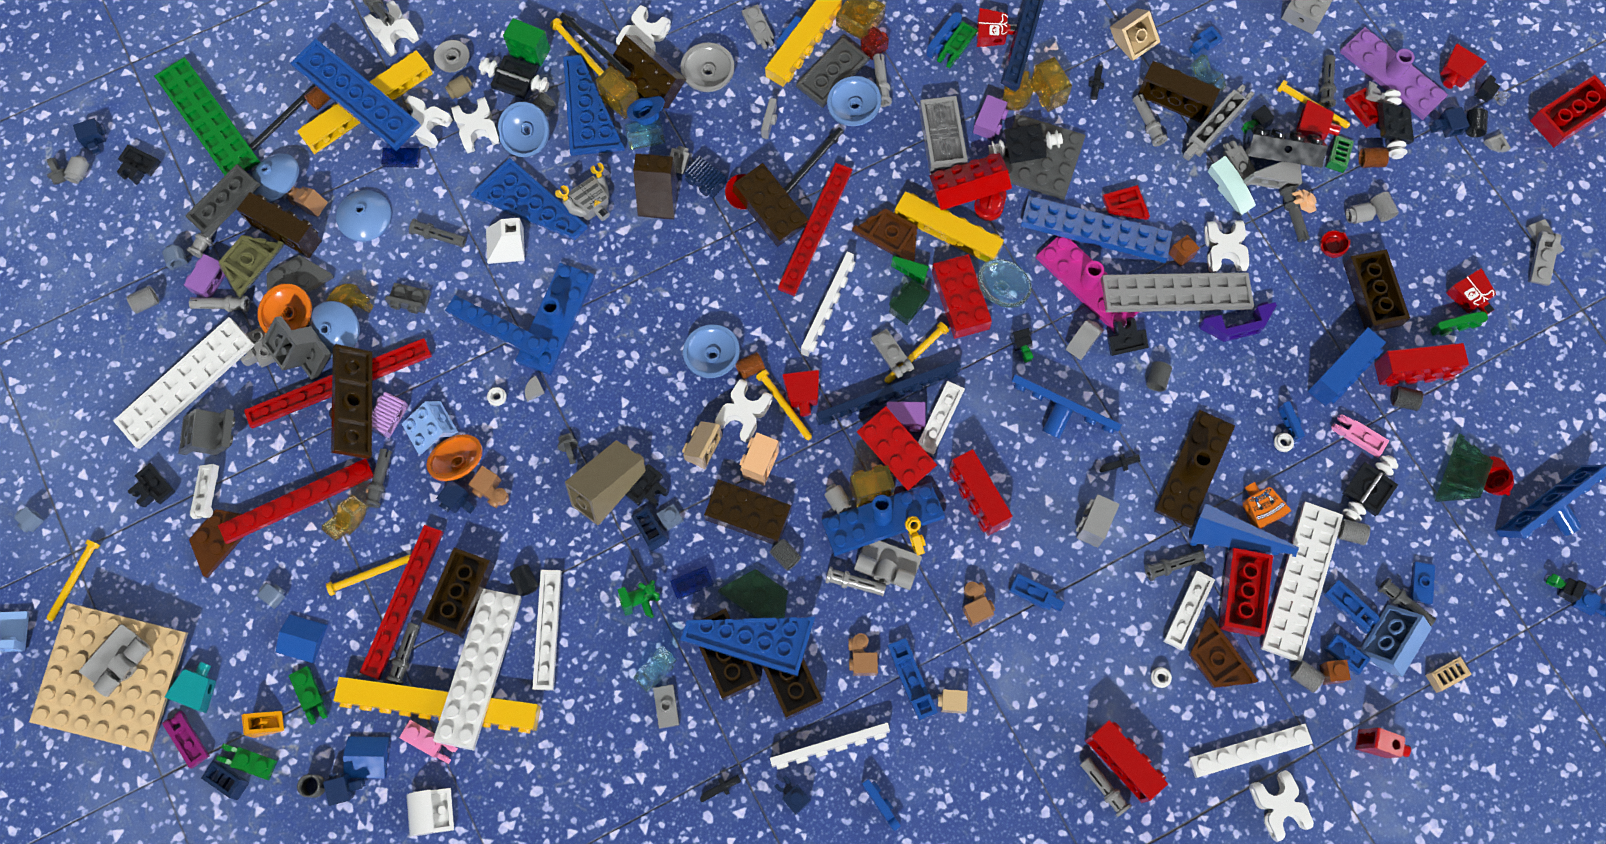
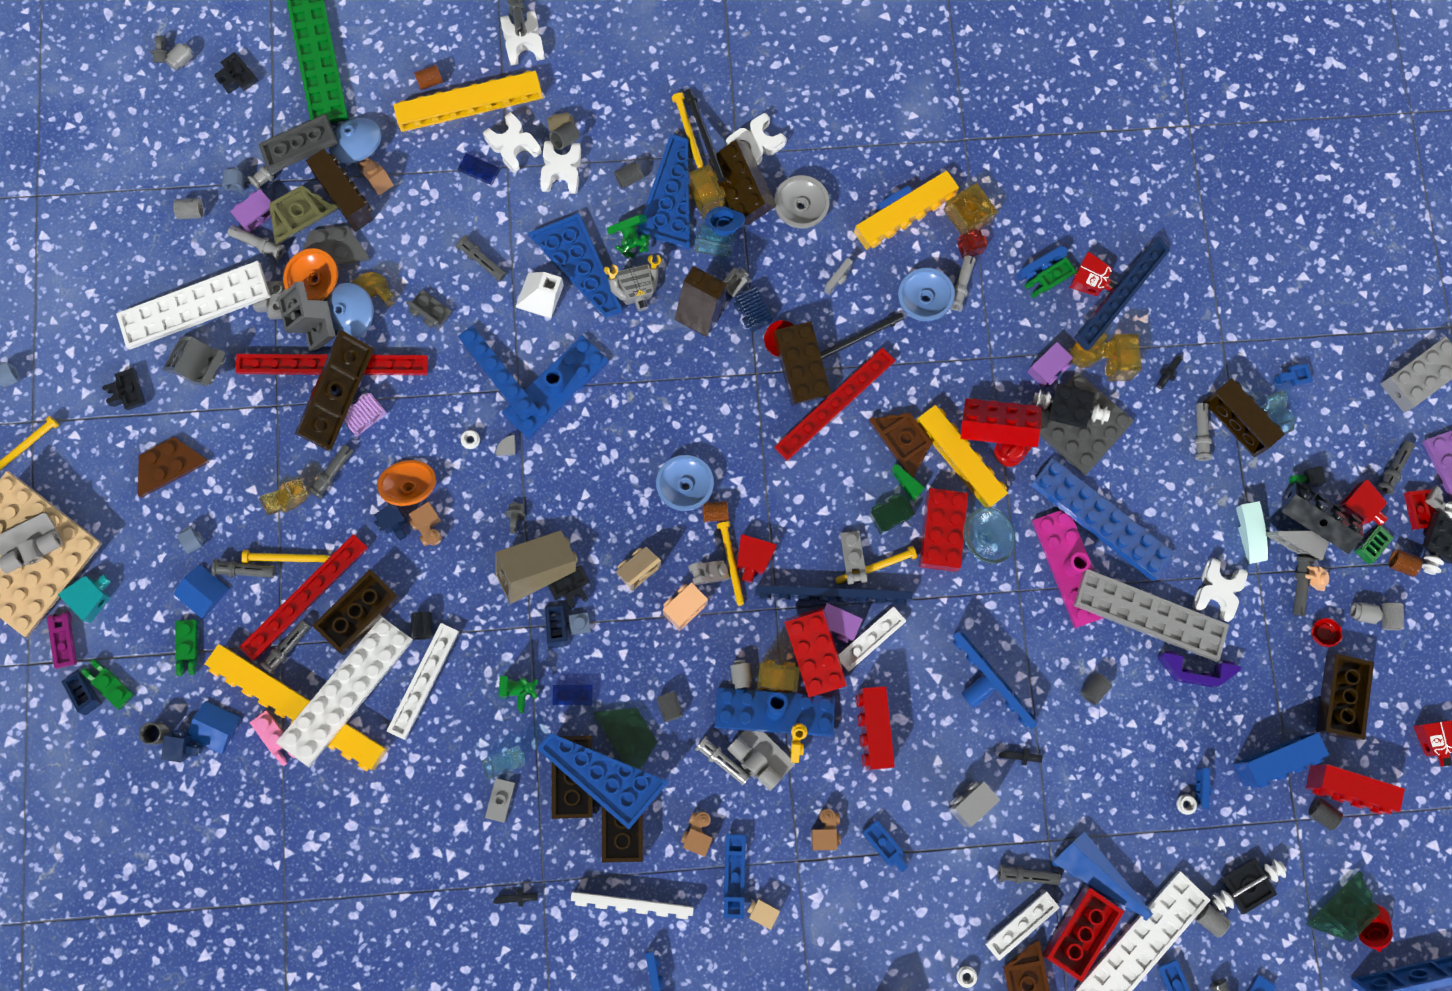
camera: 15 degrees right, 5 degrees up
(90, 134) = (205, 27): dark blue brick -> none
(204, 491) = (170, 416): white plate -> none
(262, 723) = (134, 656): light orange slope -> none
(280, 120) = (444, 59): black bar -> none
(295, 501) = (247, 461): red plate -> none
(324, 604) = (234, 568): none -> dark grey pin
(355, 94) = (460, 92): blue plate -> none
(369, 222) = (423, 221): medium blue dish -> none
(428, 425) = (397, 441): light blue bracket -> none
(430, 812) = (248, 804): white brick -> none
(449, 50) = (566, 82): light grey dish -> none
(467, 95) = (564, 135): none -> dark grey piece
(513, 76) = (616, 134): black plate -> none
(514, 125) = (593, 191): medium blue dish -> none
(526, 42) = (641, 106): green brick -> none
(566, 158) = (630, 235): none -> green piece
(744, 410) = (690, 551): white piece -> none
(748, 512) = (652, 651): dark brown brick -> none
(758, 26) = (868, 179): light grey hinge -> none
(768, 419) = (709, 572): none -> light grey plate
(794, 797) = (579, 938): dark blue brick -> none
(825, 310) = (808, 489): white plate -> none
(838, 63) = (923, 251): dark grey tile -> none
(942, 133) = (996, 363): brick -> none
(1022, 341) = (981, 598): black piece -> none
(1084, 339) = (1042, 622): light grey brick -> none
(1126, 203) = (1143, 505): red wing -> none
(1127, 338) = (1082, 639): black plate -> none
(1135, 33) = (1229, 339): tan slope -> none
(1184, 250) = (1176, 576): dark orange brick -> none
(1194, 468) = (1076, 803): dark brown plate -> none
(1217, 122) = (1267, 463): light grey hinge -> none
(1239, 159) = (1271, 509): light grey hinge -> none
(1264, 506) = (1138, 858): orange torso -> none
(1302, 98) = (1364, 475): yellow bar -> none
(1361, 435) = (1264, 831): bright pink hinge -> none
(1461, 323) = (1412, 764): green hinge -> none

